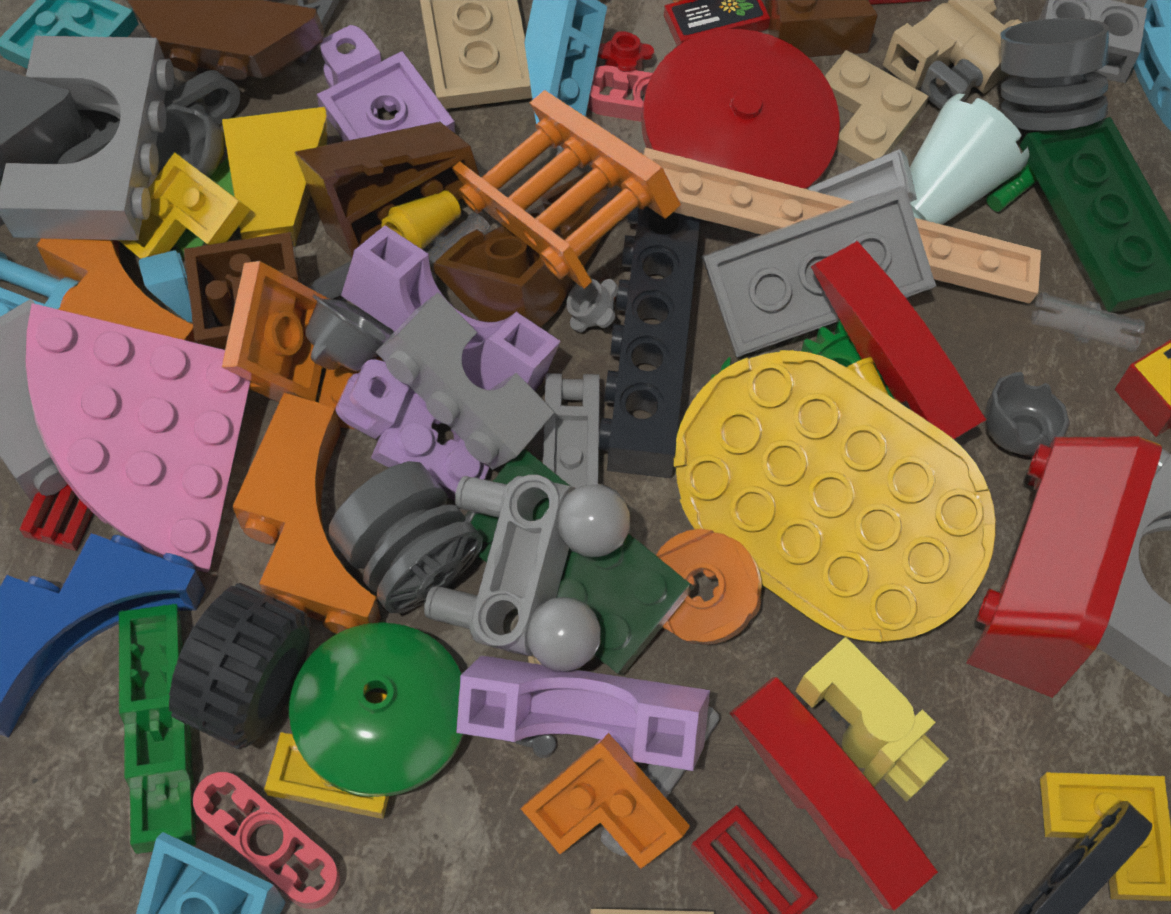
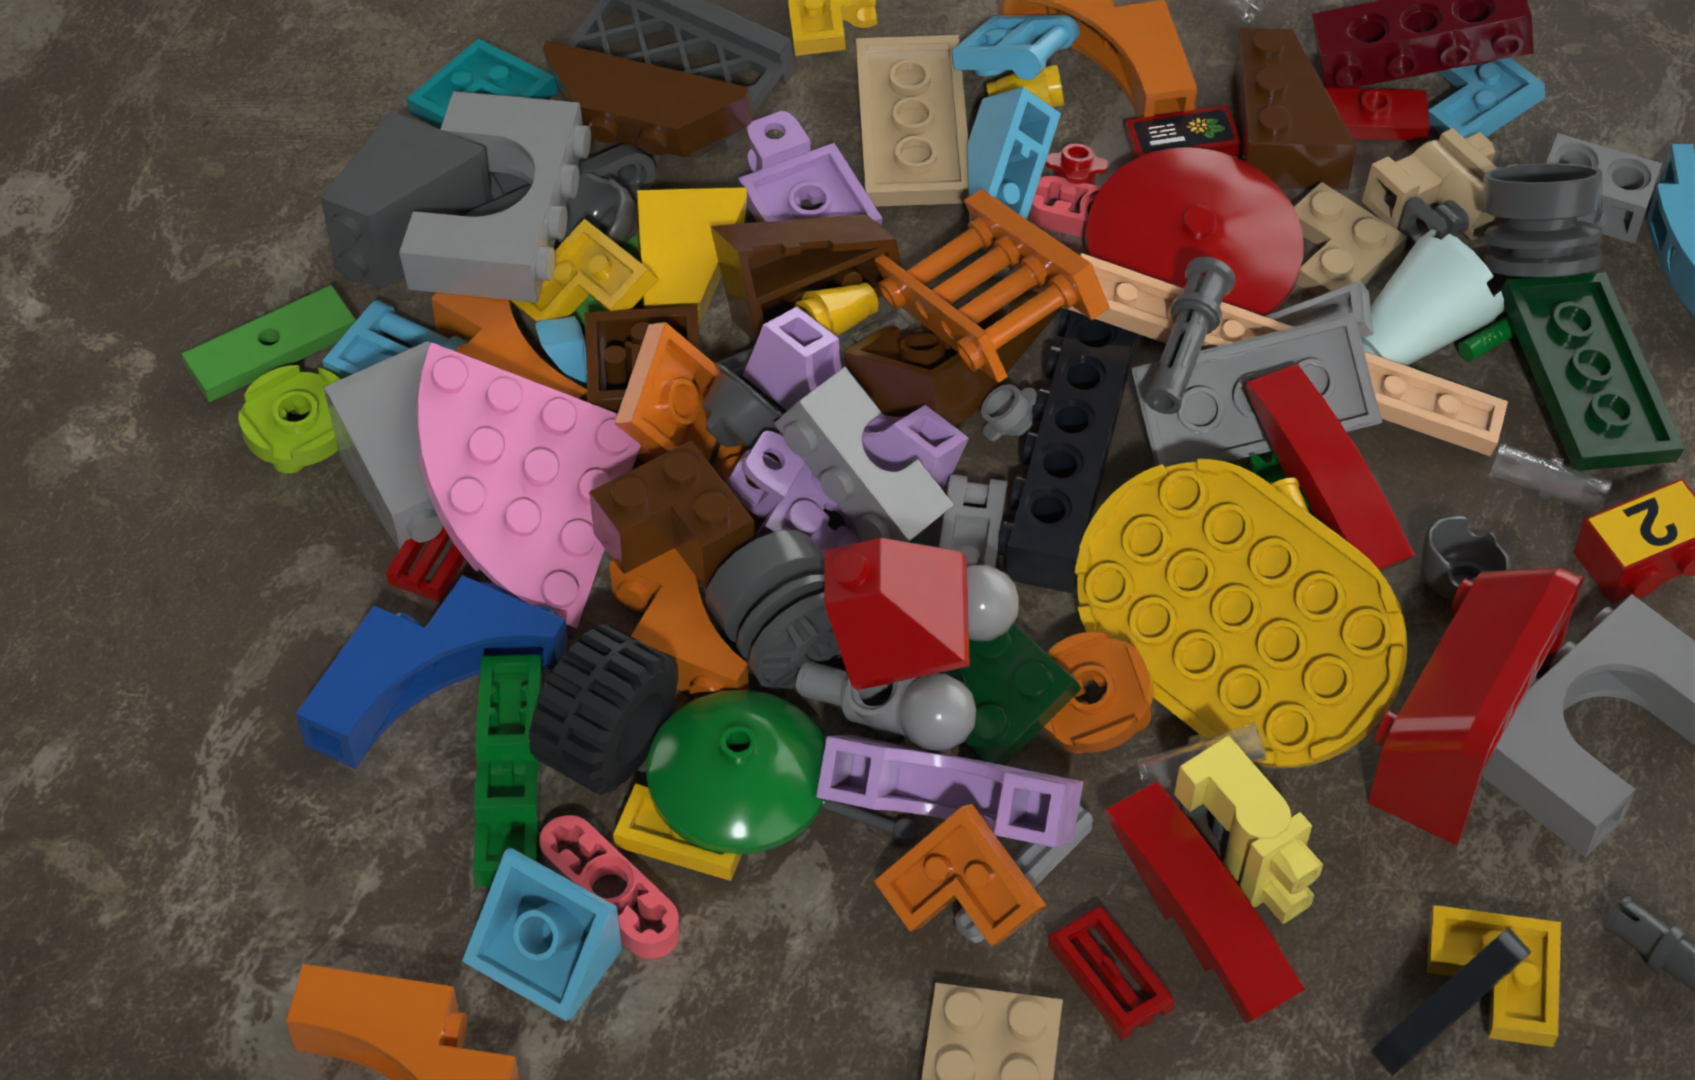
camera: 10 degrees right, 10 degrees down
(283, 445) = (667, 506): none -> reddish brown brick
(516, 543) = (897, 610): none -> red slope
(758, 202) = (1194, 316): none -> dark grey pin
(811, 644) = (1166, 765): none -> clear pin

